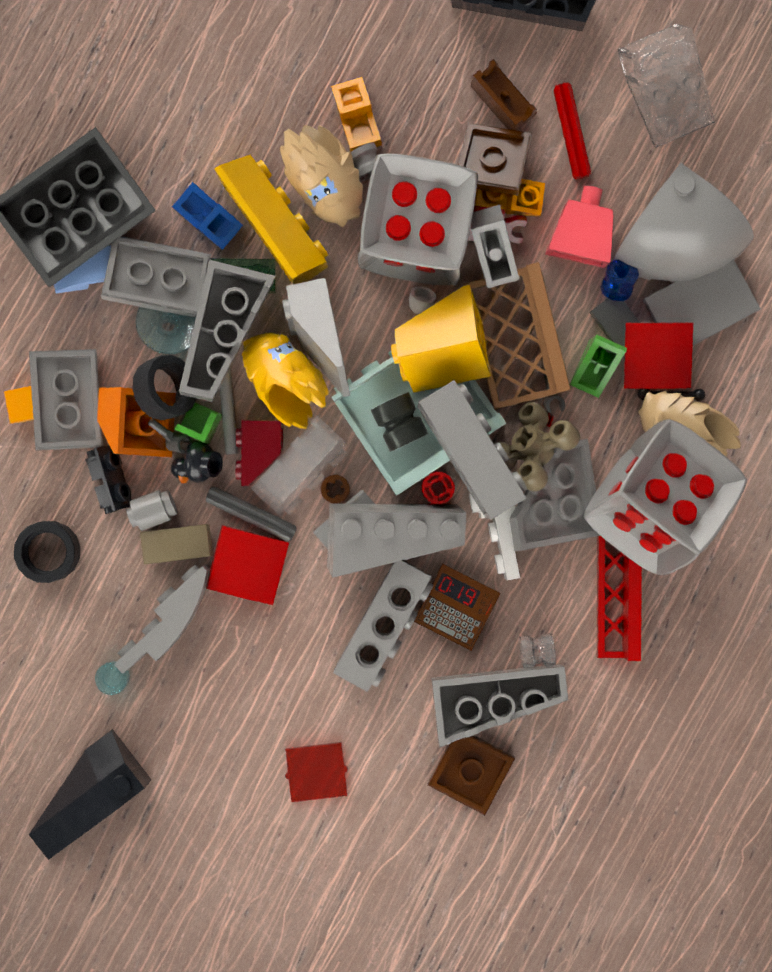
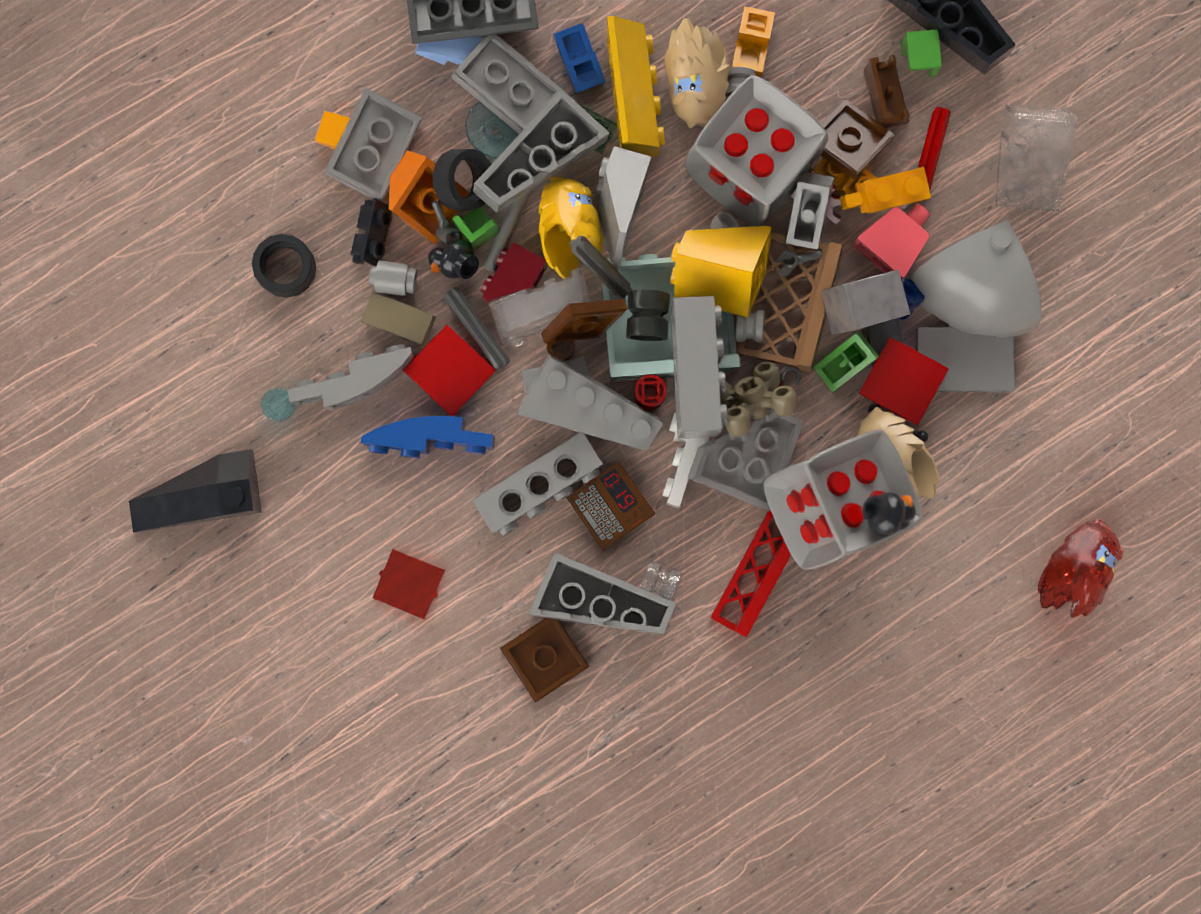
camera: 25 degrees right, 5 degrees down
(251, 641) = (415, 434): none -> blue slope
(334, 403) = (600, 267): none -> dark grey axle
(345, 459) = (584, 320): none -> reddish brown tile
(497, 382) = (751, 327): none -> light grey wheel
(501, 300) = (792, 260): none -> dark grey hand
(516, 41) = (922, 51): none -> bright green panel
(555, 190) = (889, 192): none -> light orange hinge
(589, 305) = (865, 302): none -> flat silver piece
(717, 495) = (887, 512): none -> black animal

